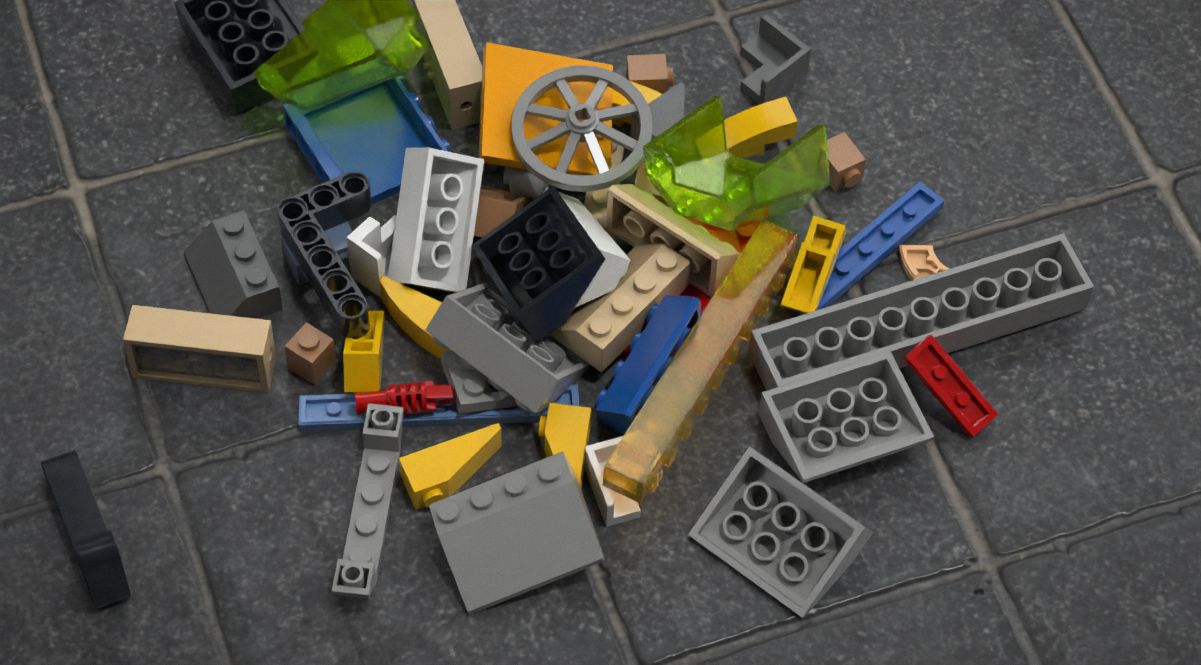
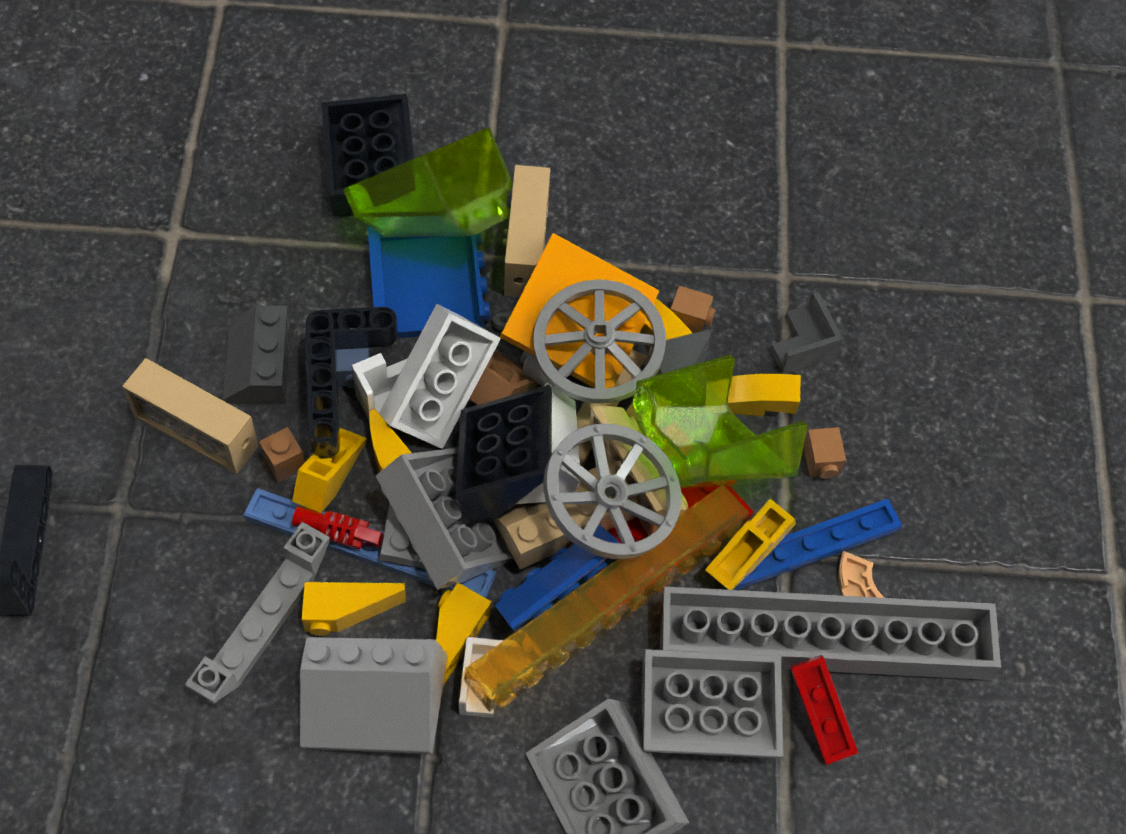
camera: 20 degrees right, 5 degrees up
(668, 256) = (613, 486): none -> light grey wheel

